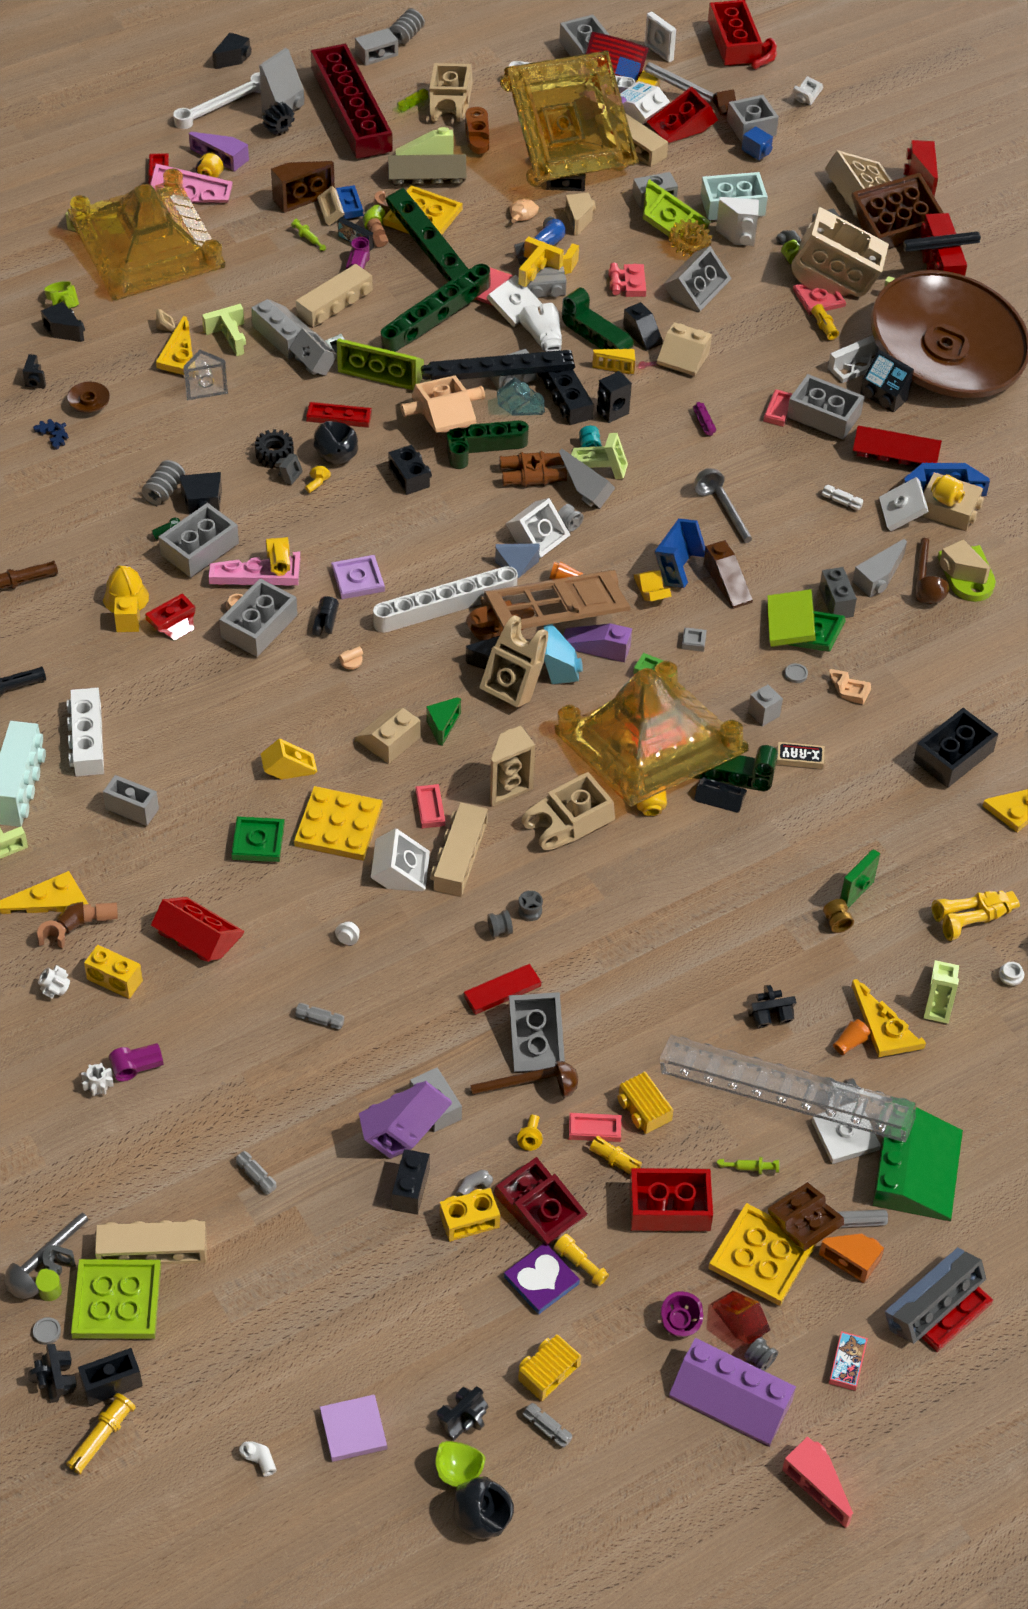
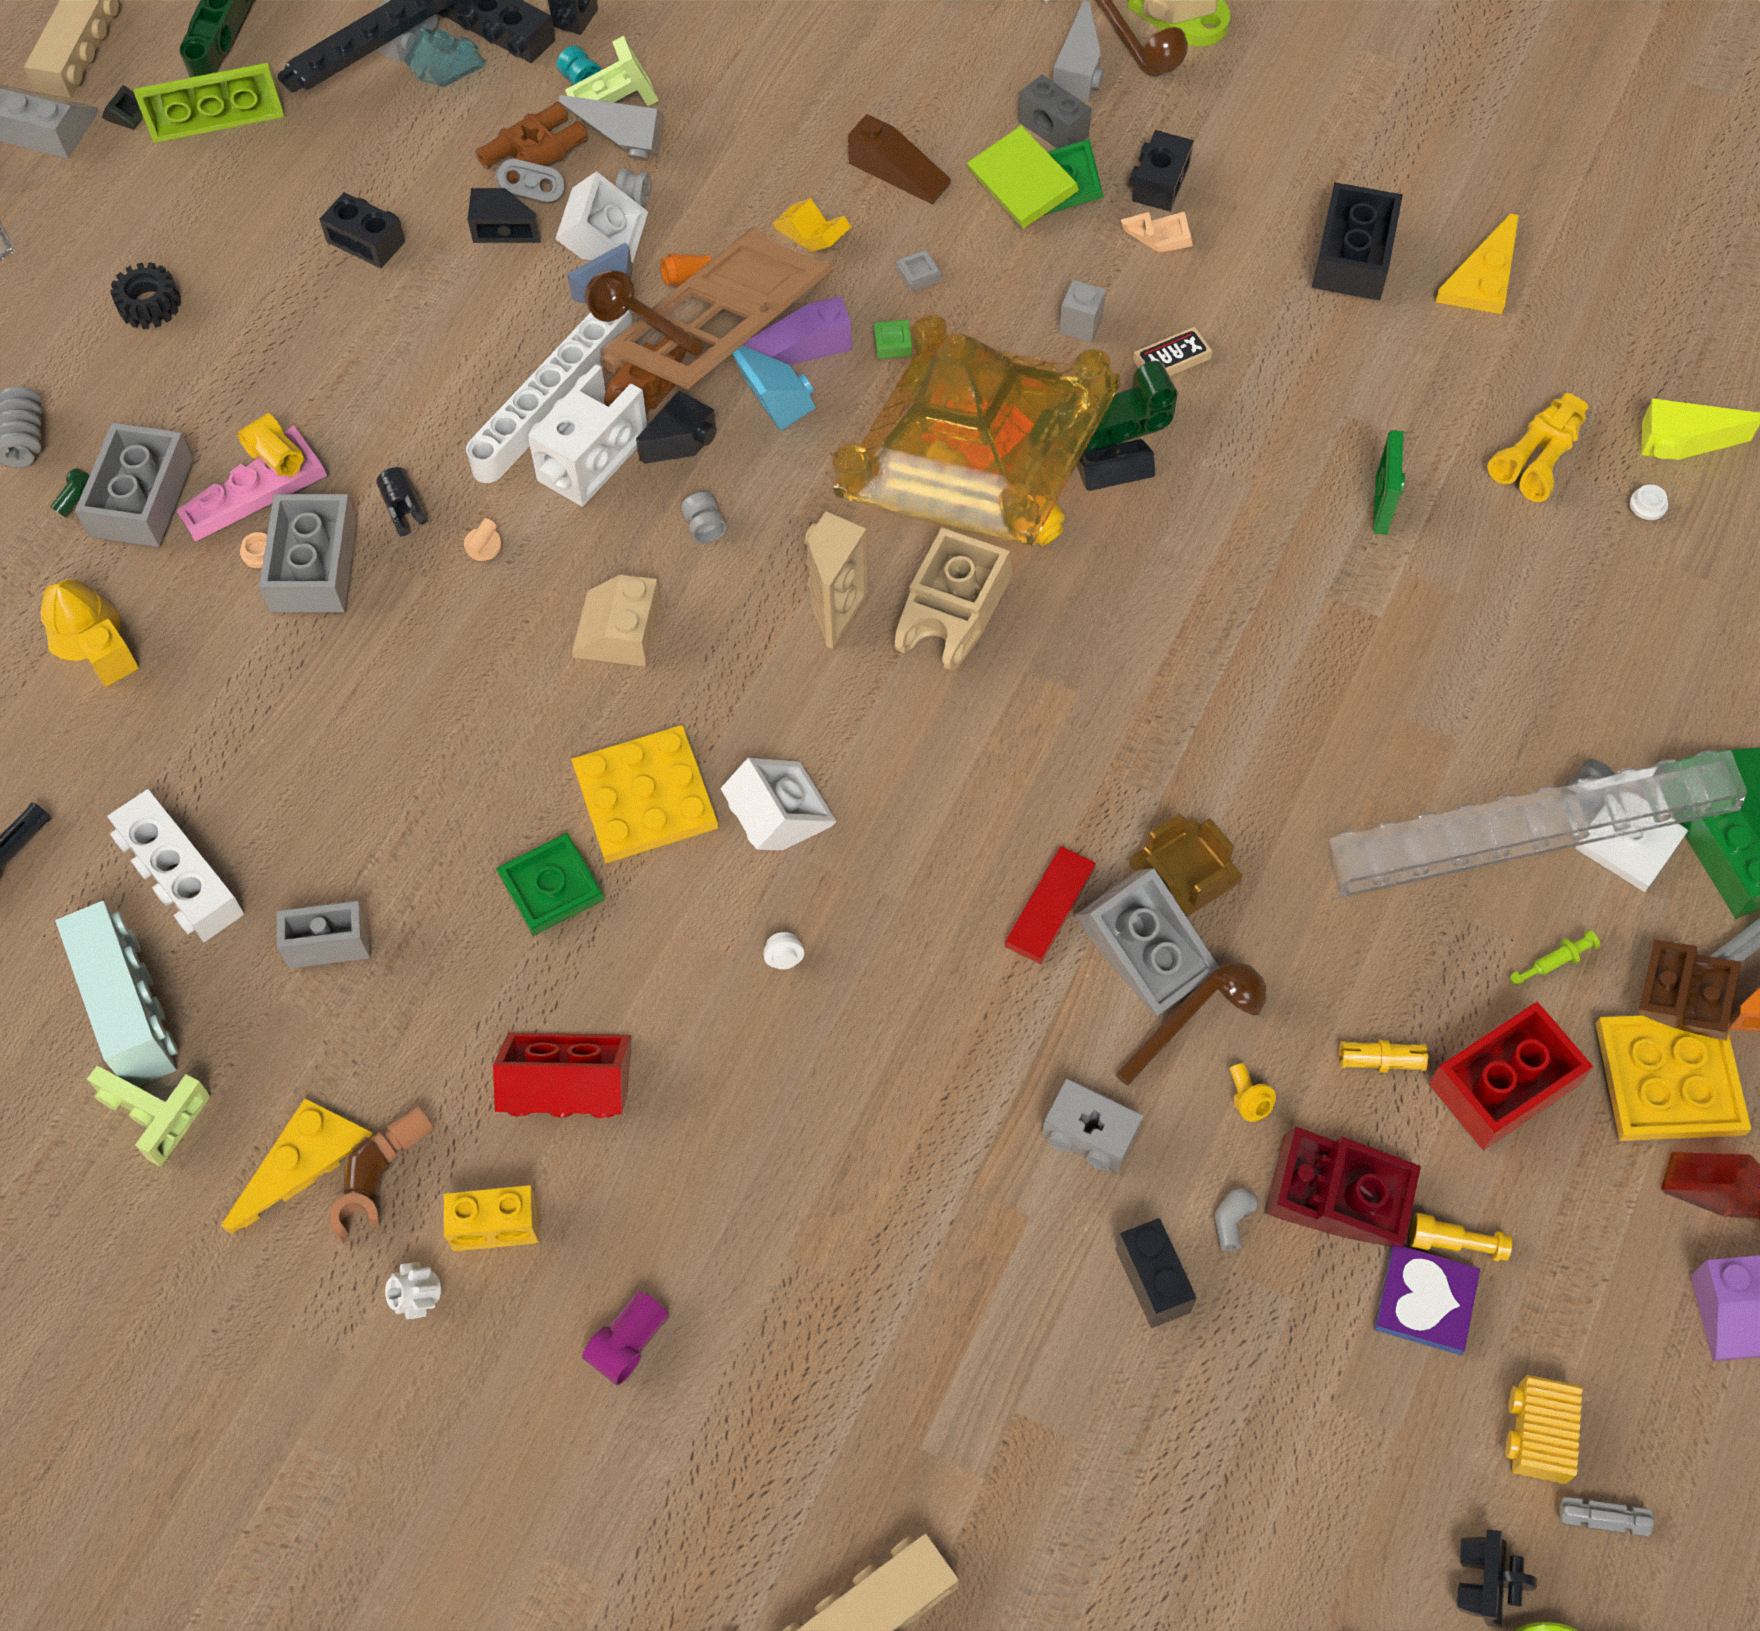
camera: 30 degrees left, 10 degrees up
(97, 1079) = (587, 1393): white gear -> none
(173, 617) = (178, 619): red slope -> none
(201, 489) = (82, 411): black torso -> none
(256, 1172) = (927, 1399): light grey axle -> none
(287, 760) = (506, 743): yellow slope -> none
(289, 468) = (189, 312): dark grey tile -> none
(313, 352) = (102, 130): light grey brick -> none
(319, 475) = (240, 300): yellow plate -> none
(319, 1016) = (835, 1099): light grey axle -> none
(335, 442) = (232, 242): black piece -> none
(345, 414) = (201, 202): red tile -> none
(358, 577) = (402, 419): lavender tile -> none
(403, 1118) = (1089, 1195): medium lavender slope -> none
(430, 806) = (751, 695): coral tile -> none
(440, 631) = (584, 439): none -> white torso
(442, 718) = (673, 561): green slope -> none
(444, 403) = (349, 111): light nougat slope -> none
(459, 849) = (844, 736): tan brick -> none
(471, 1220) = (1274, 1273): yellow brick -> none
(473, 705) = (704, 520): none -> light grey wheel
(485, 438) = (432, 135): dark green beam -> none
(485, 498) = (501, 218): none -> black slope
(500, 923) = (979, 812): dark grey wheel -> none
(506, 566) = (611, 295): none -> reddish brown piece
(514, 664) = (727, 417): tan brick -> none
(516, 485) = (529, 180): none -> light grey plate
(526, 901) = (1001, 753): dark grey wheel -> none
(588, 1009) = (1190, 861): none -> pearl gold panel
(589, 1126) = (1322, 1030): coral tile -> none
(645, 1103) = (1364, 955): yellow brick -> none
(676, 548) = (815, 144): blue panel -> none
(679, 1319) = (1642, 1240): magenta helmet -> none
(710, 482) = (780, 47): flat silver piece -> none
(762, 1010) = (1425, 712): black hips -> none
(796, 673) = (1079, 248): light grey piece -> none
(839, 917) = (1392, 546): pearl gold wheel -> none
(852, 1036) = (1537, 701): orange cone -> none
(876, 654) = (1161, 170): none -> black brick
(887, 1031) = (1562, 663): yellow wing -> none
(942, 991) = (1603, 573): yellowish green bracket -> none

